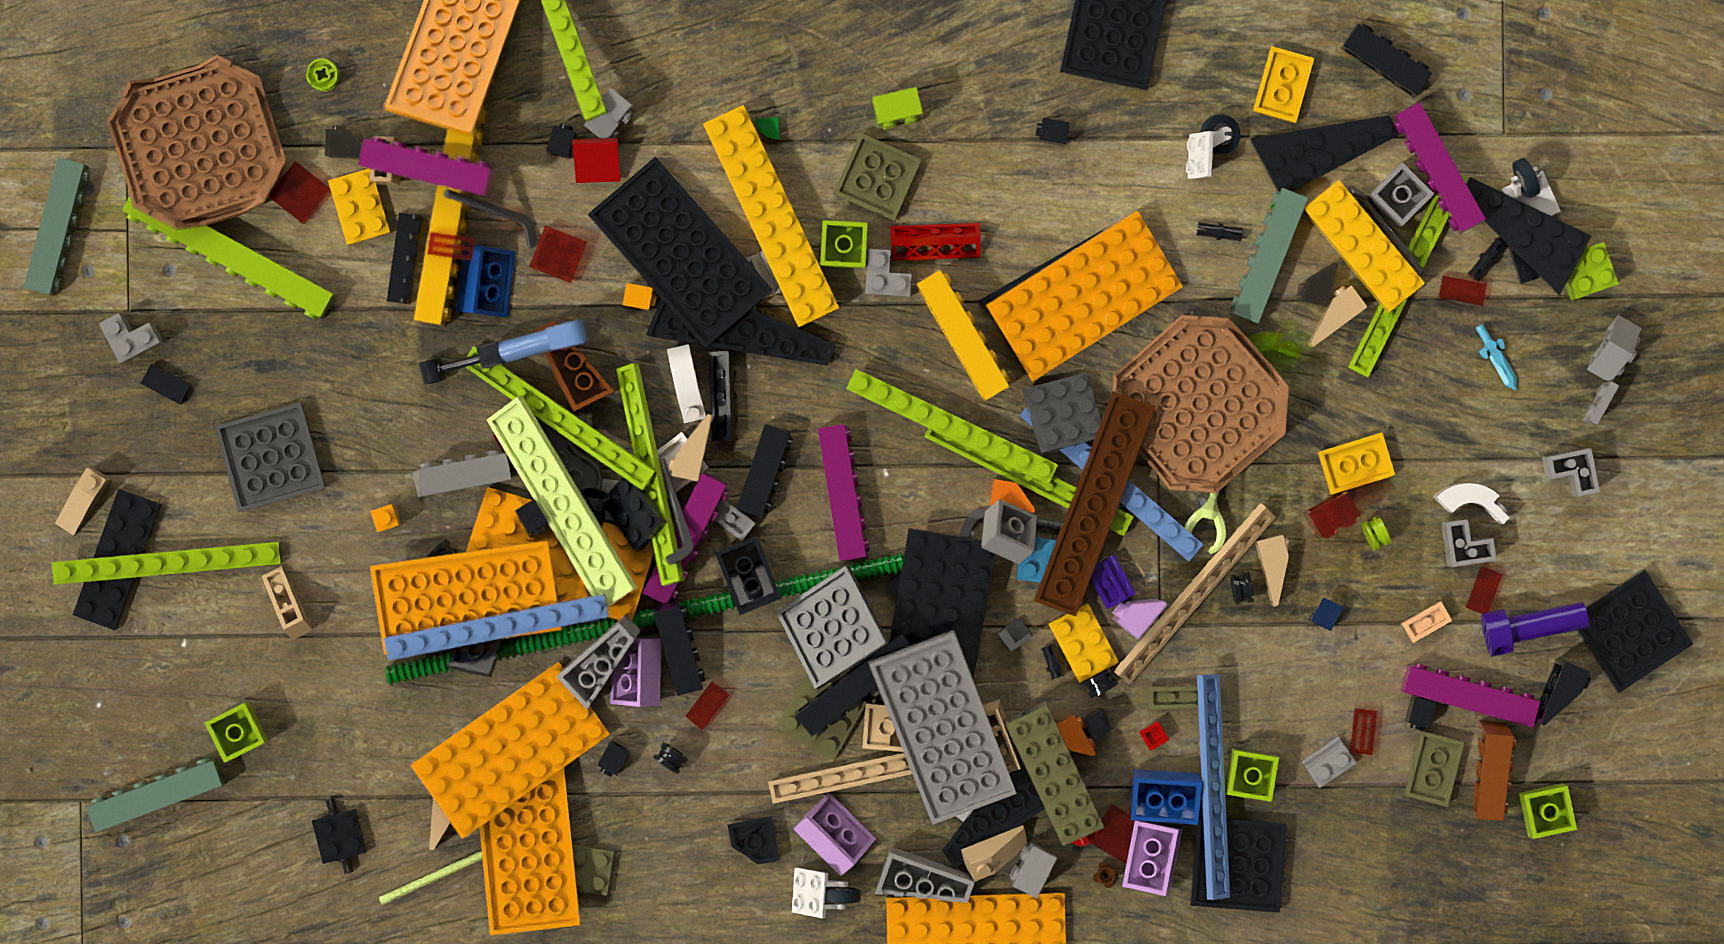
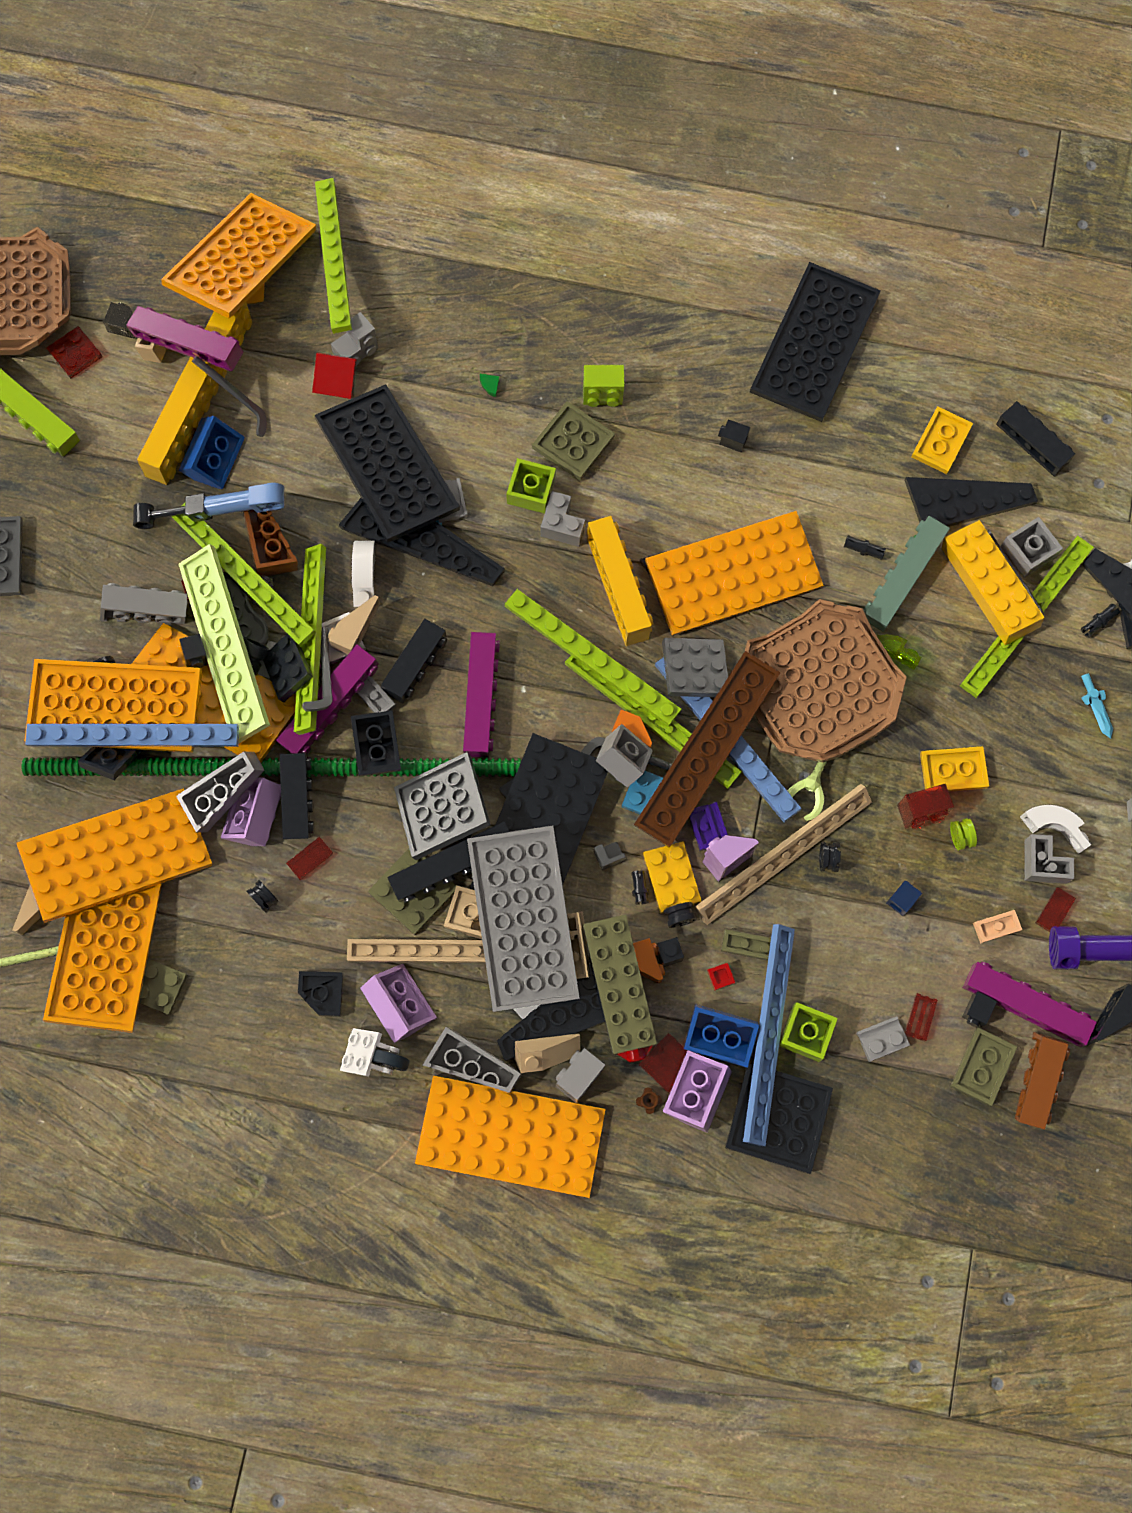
camera: 10 degrees right, 15 degrees down
(323, 75) = (122, 264): lime wheel -> none
(359, 207) = (121, 374): yellow plate -> none
(386, 517) = (65, 628): light orange brick -> none
(404, 258) = (146, 420): black hinge -> none
(431, 243) = (176, 394): clear red tile -> none
(558, 254) = (280, 445): clear red plate -> none
(561, 141) = (306, 356): black brick -> none
(613, 759) = (209, 886): black brick -> none
(639, 297) = (341, 493): light orange brick -> none
(722, 396) = (393, 591): black hinge -> none
(771, 216) = (473, 453): yellow brick -> none
(935, 237) = (615, 497): red fence -> none
(1218, 136) = (877, 467): white plate -> none
(1273, 561) = (863, 837): tan slope -> none
(1318, 287) = (944, 610): clear smoke slope -> none
(1339, 311) = (963, 633): tan slope -> none
(1439, 168) = (1070, 531): magenta brick -> none
(1462, 290) = (1074, 642): clear red tile -> none
(1547, 811) = (1089, 1130): lime brick -> none

